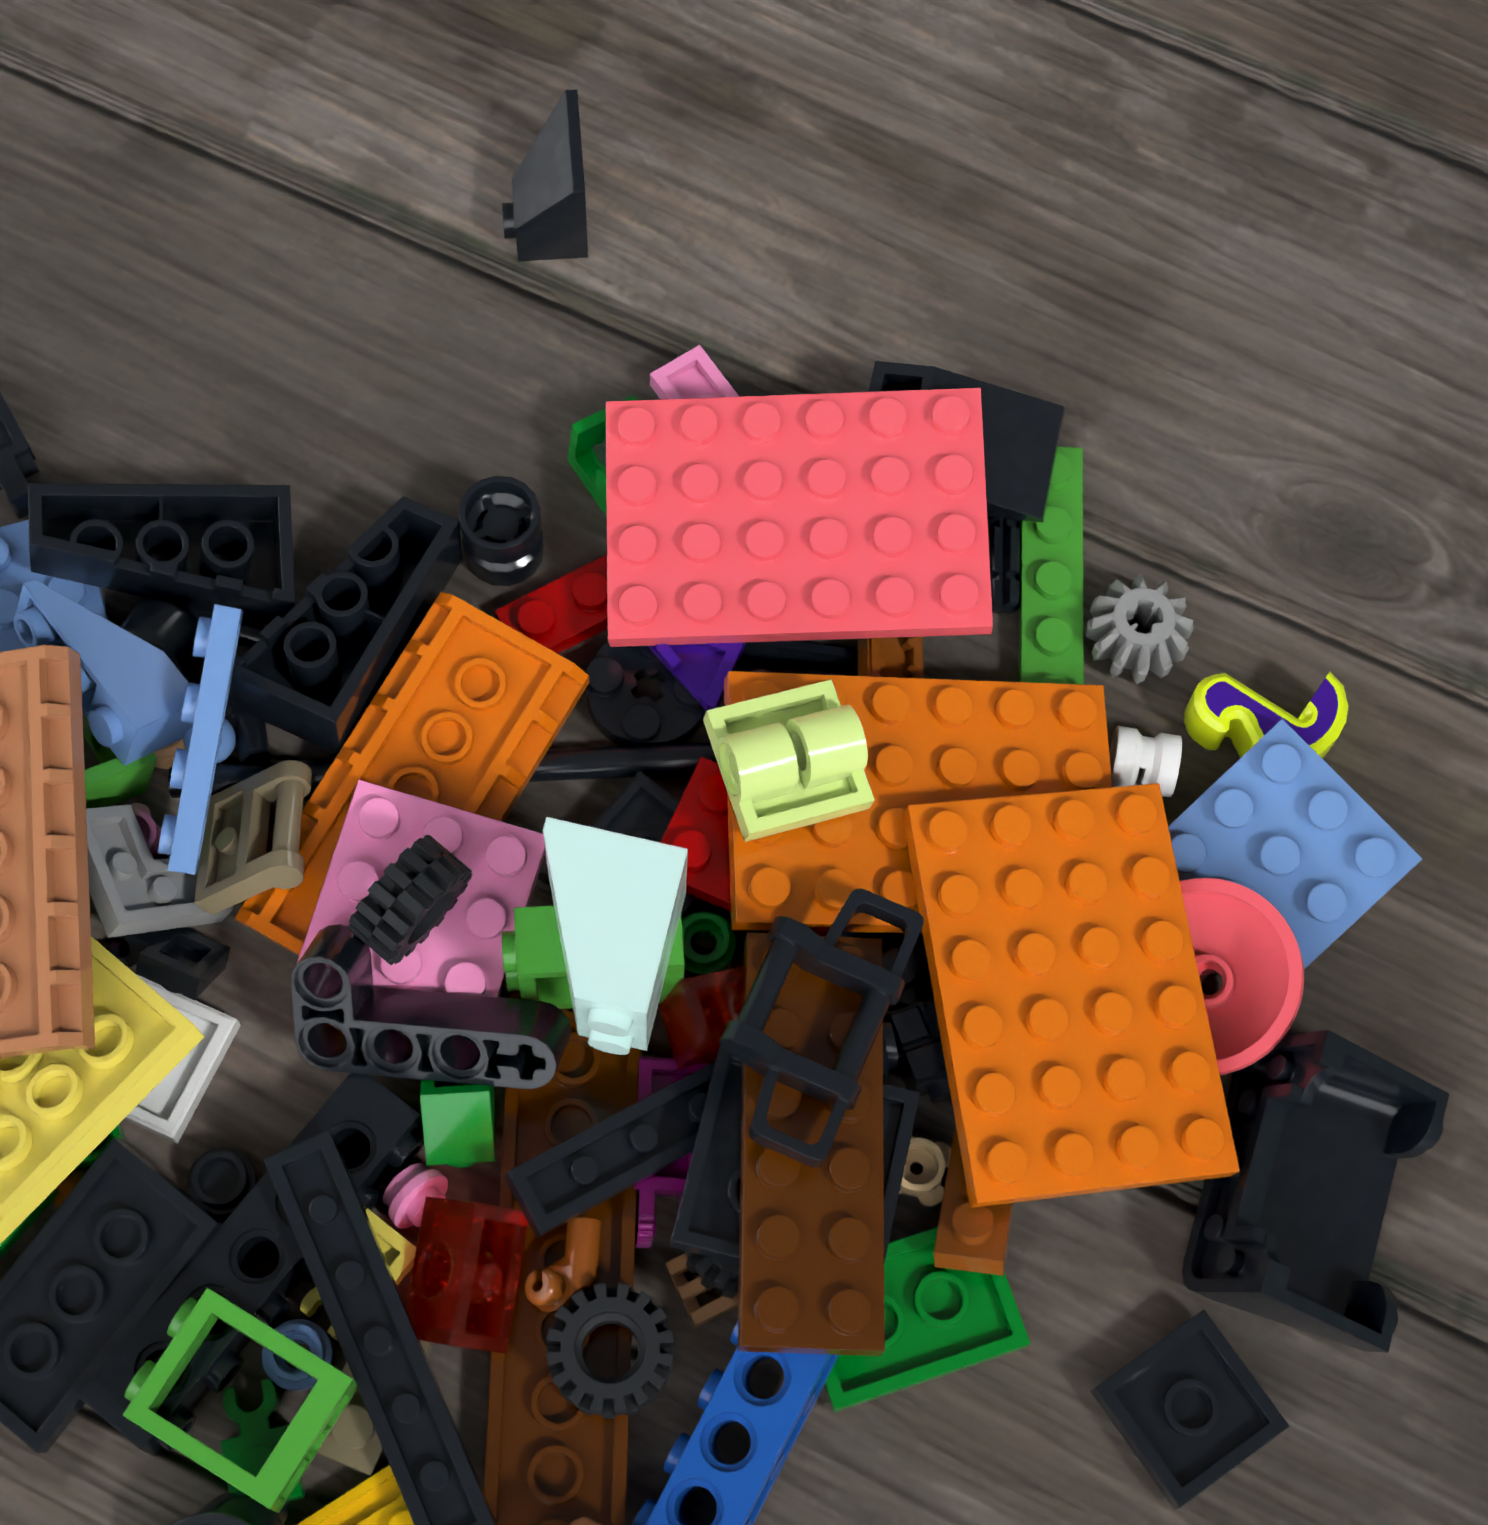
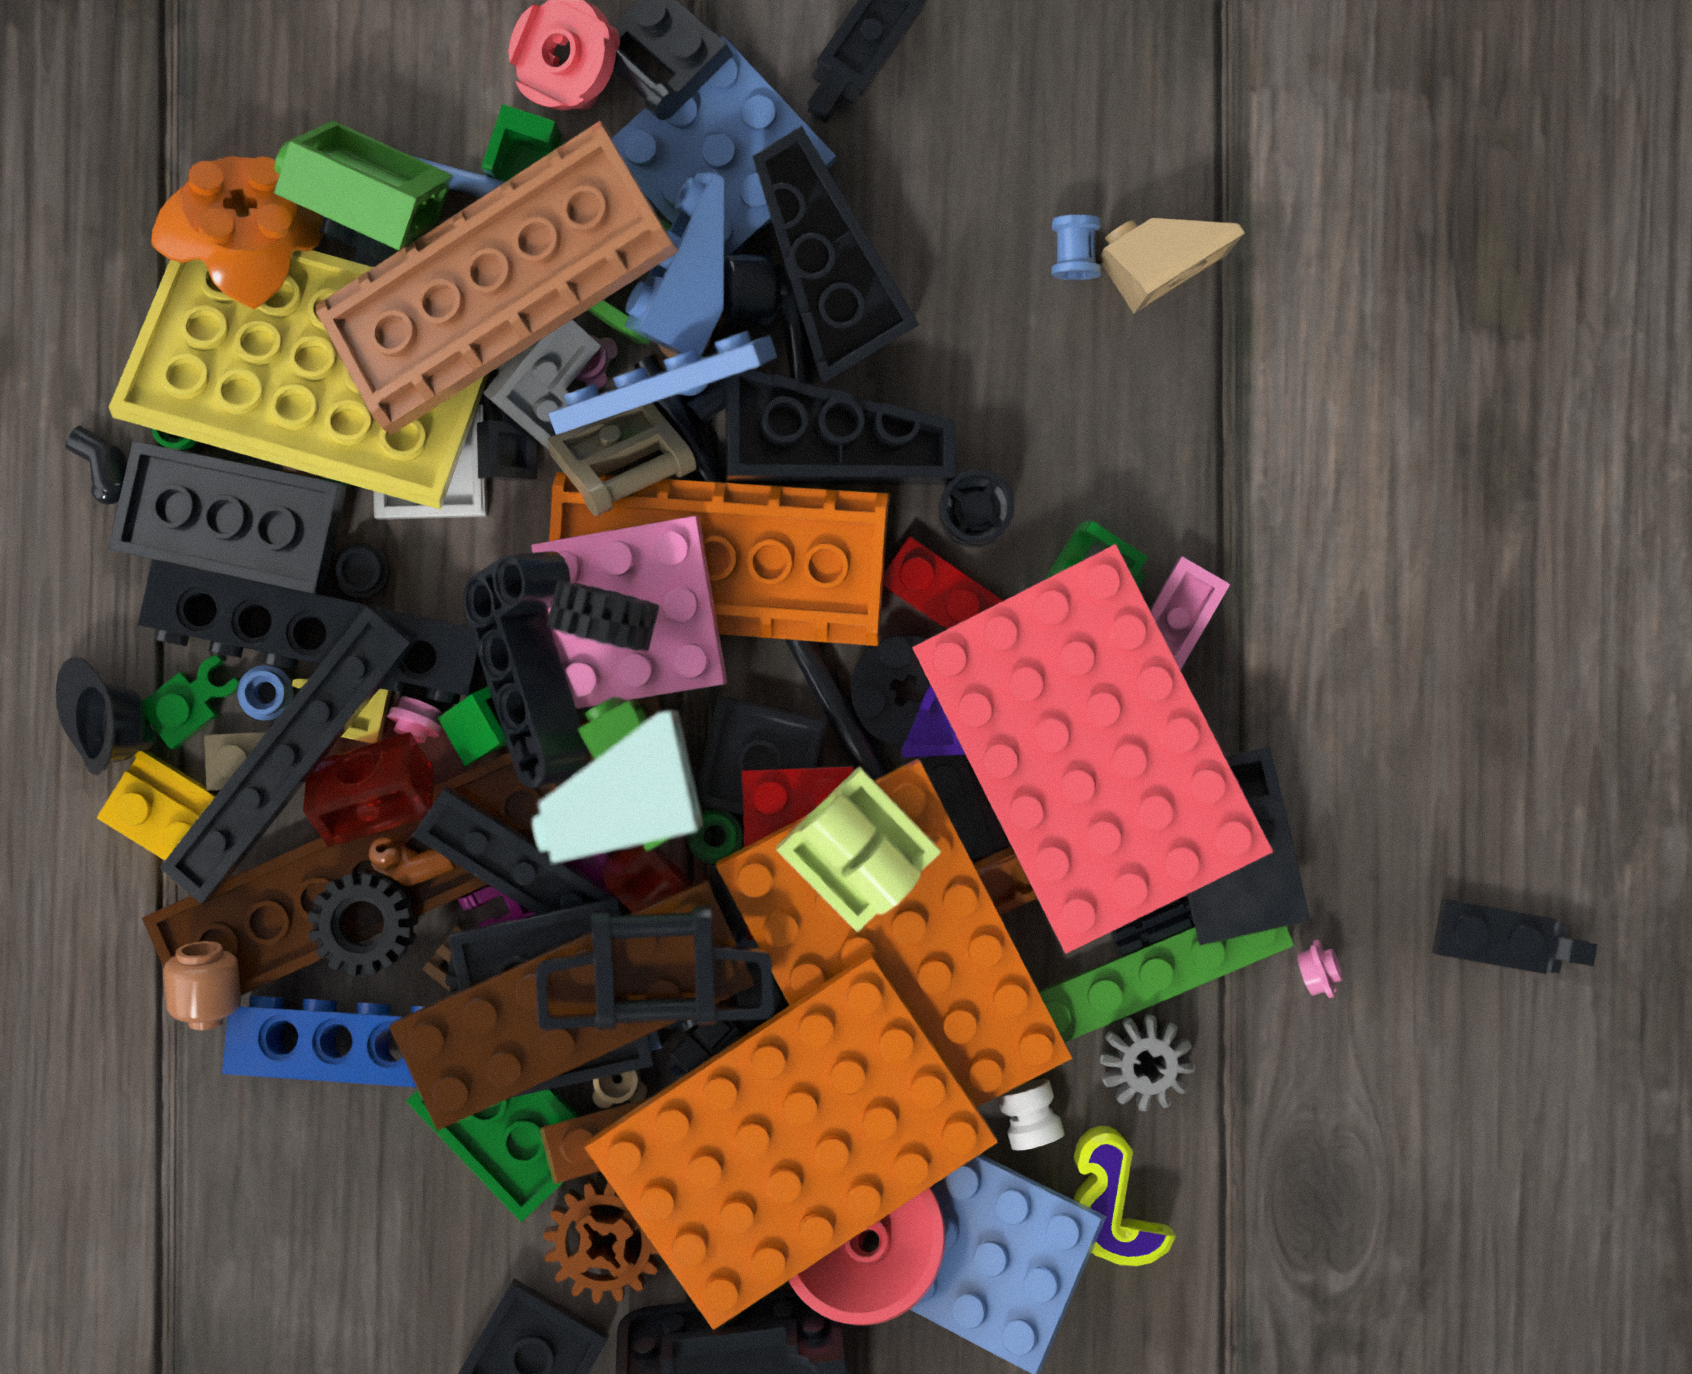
camera: 65 degrees right, 20 degrees up
(299, 335) = (1076, 247): none -> medium blue bush
(301, 1438) = (245, 687): bright green window -> none
(350, 259) = (1163, 255): none -> tan slope
(550, 191) = (1312, 386): black slope -> none
(1095, 1291) = (587, 1255): none -> dark orange gear
(1117, 434) = (1320, 969): none -> bright pink plate
(1161, 269) = (1507, 938): none -> black hinge

